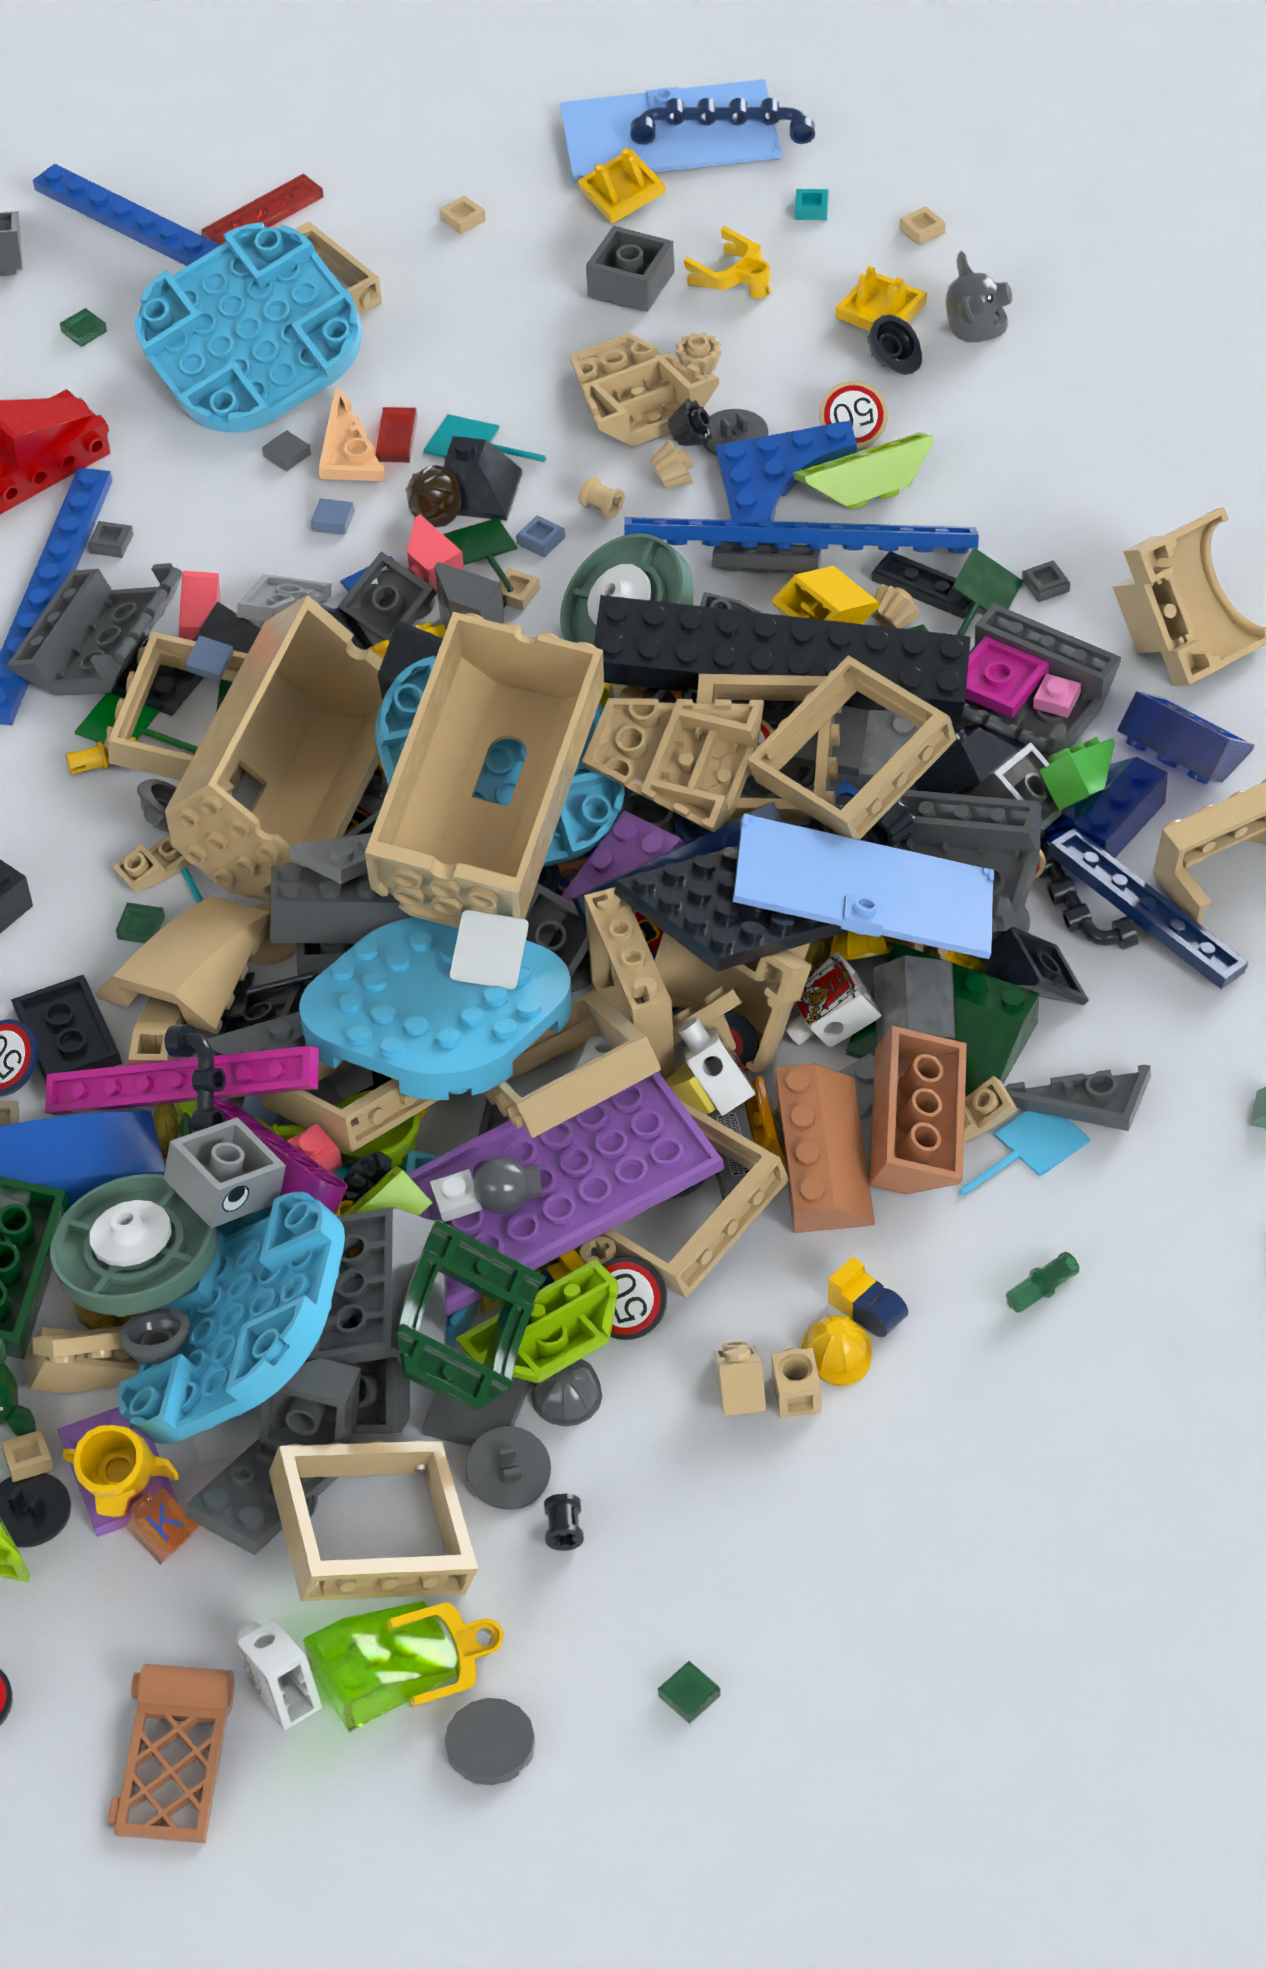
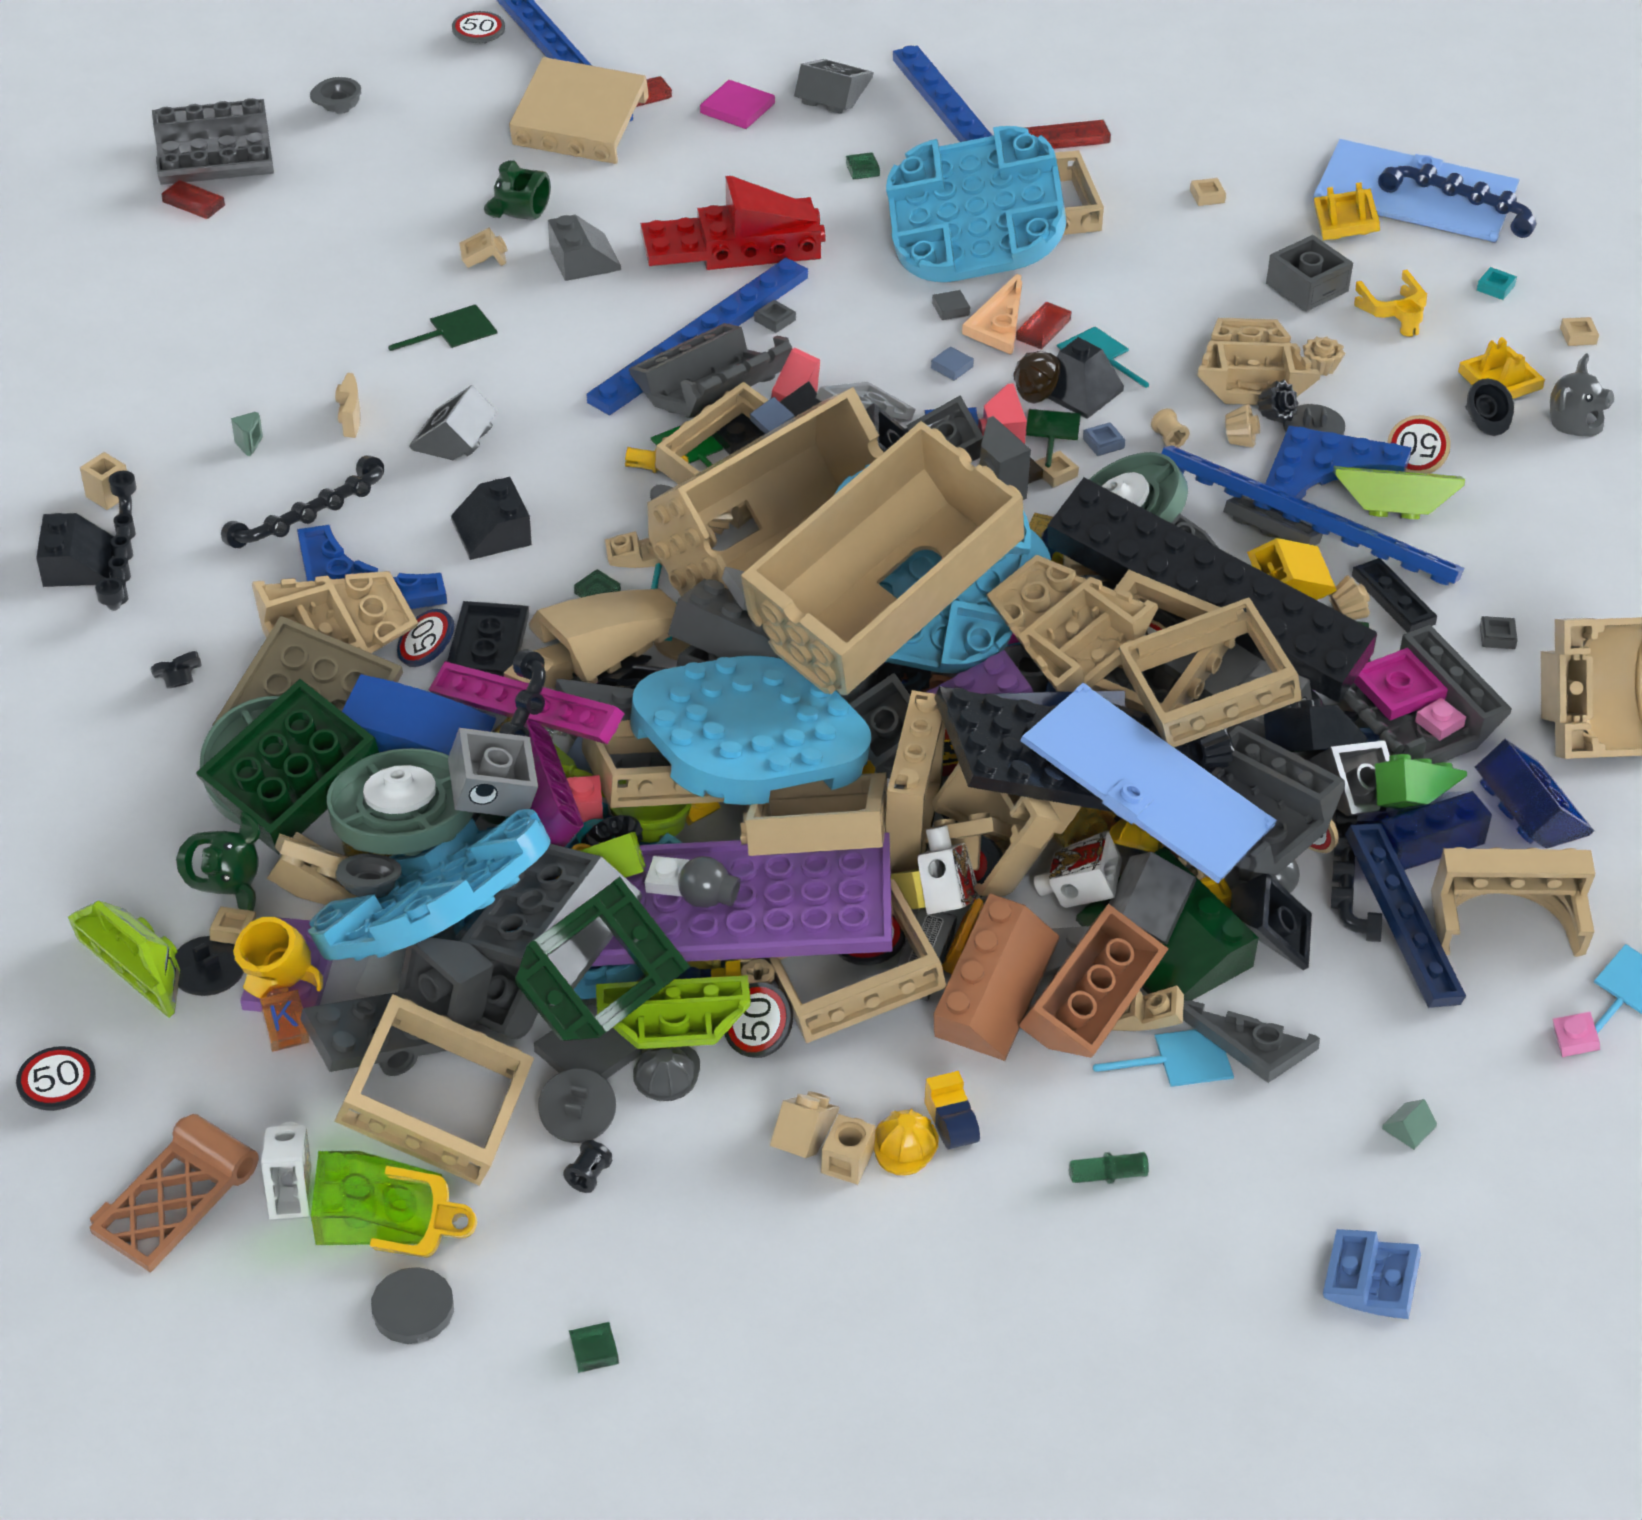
camera: 25 degrees right, 5 degrees down
(489, 949) = (810, 699): white sticker -> none
(983, 584) = (1442, 610): dark green piece -> none

